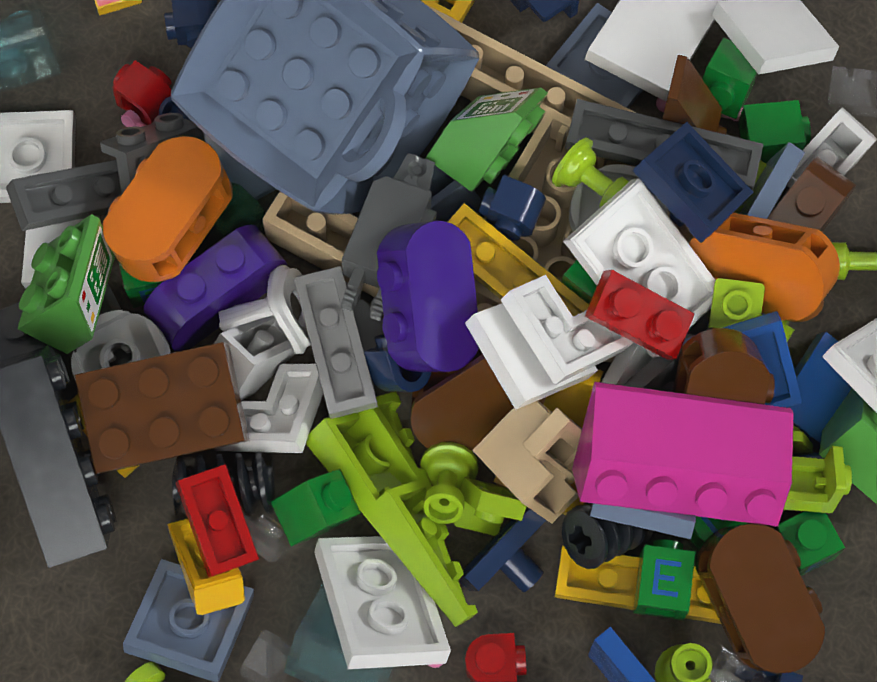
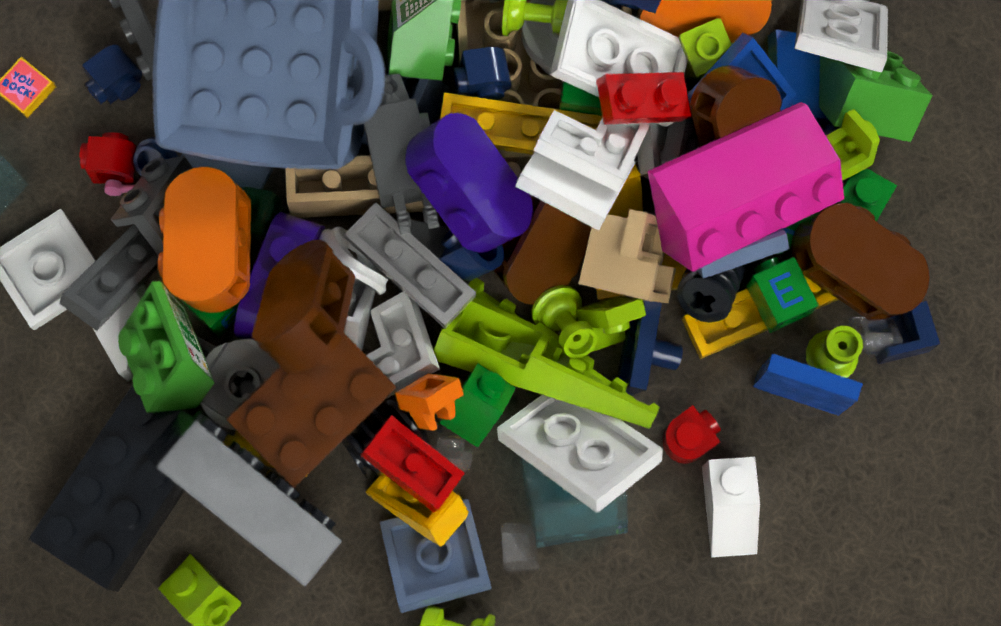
camera: 35 degrees left, 5 degrees up
(206, 316) = (304, 307): none -> reddish brown brick
(274, 468) = (430, 395): none -> orange tile

